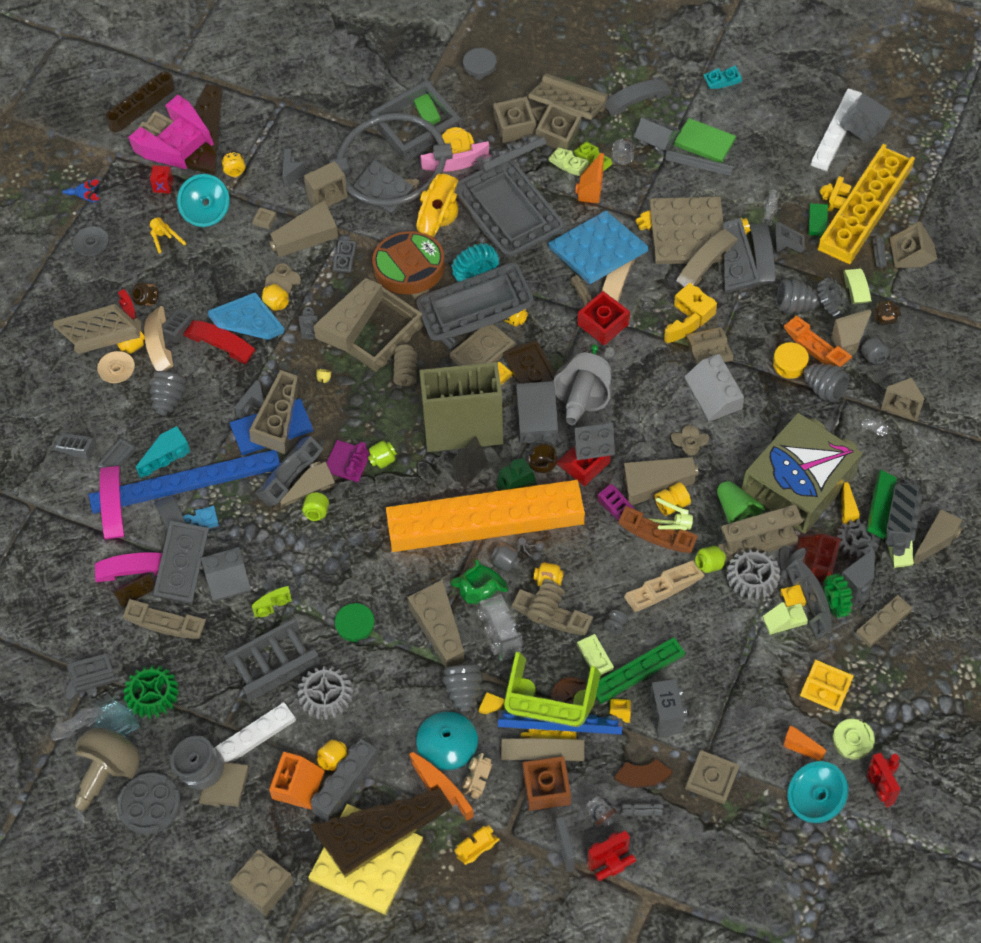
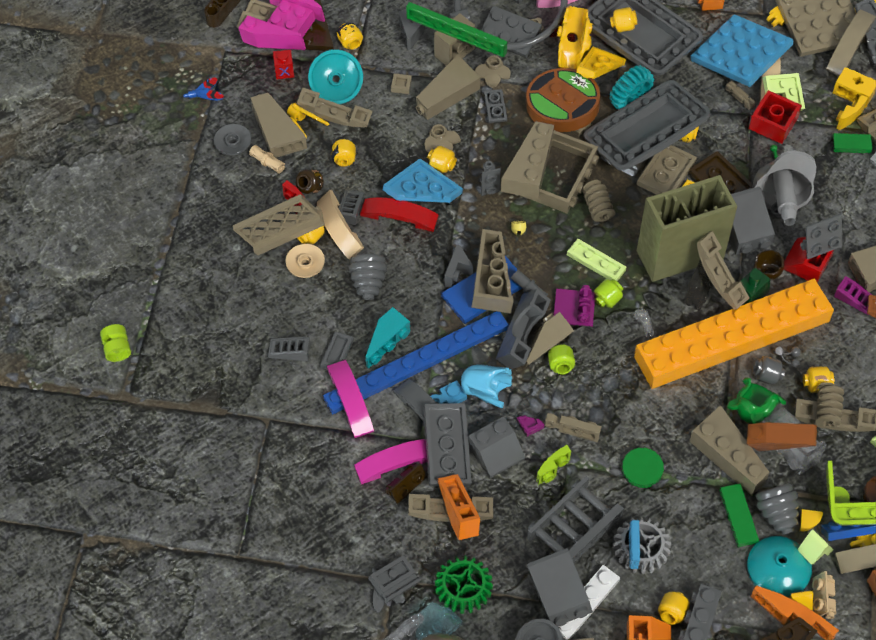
camera: 15 degrees left, 0 degrees up
(116, 265) = (267, 159): none -> tan pin
(134, 239) = (277, 128): none -> dark tan slope
(169, 620) = (459, 507): none -> orange slope
(187, 272) = (343, 152): none -> yellow head
(191, 232) = (332, 111): none -> dark tan slope
(230, 713) = (559, 588): none -> dark grey slope
(237, 513) = (486, 382): none -> medium azure hair
(266, 561) = (529, 425): none -> magenta tile
(304, 571) = (574, 427): none -> dark tan plate
(310, 430) = (524, 282): none -> dark grey pin
(311, 689) = (634, 544): none -> dark azure tile
(323, 176) = (456, 29): none -> green tile
(354, 222) = (493, 71): none -> dark tan plate
(385, 421) = (596, 260): none -> yellowish green tile
(409, 488) = (643, 316): none -> clear arm
(427, 685) = (739, 515): none -> green tile
(454, 233) = (598, 63): none -> yellow wing
(454, 774) = (804, 598): none -> yellow slope
(481, 454) = (718, 273): none -> dark tan slope
(482, 619) = (781, 436): none -> dark orange slope
(483, 727) = (814, 547): none -> yellowish green slope
(490, 196) = (624, 19): none -> yellow head
(626, 289) = (787, 85): none -> yellowish green plate
(672, 358) = (852, 143): none -> green tile

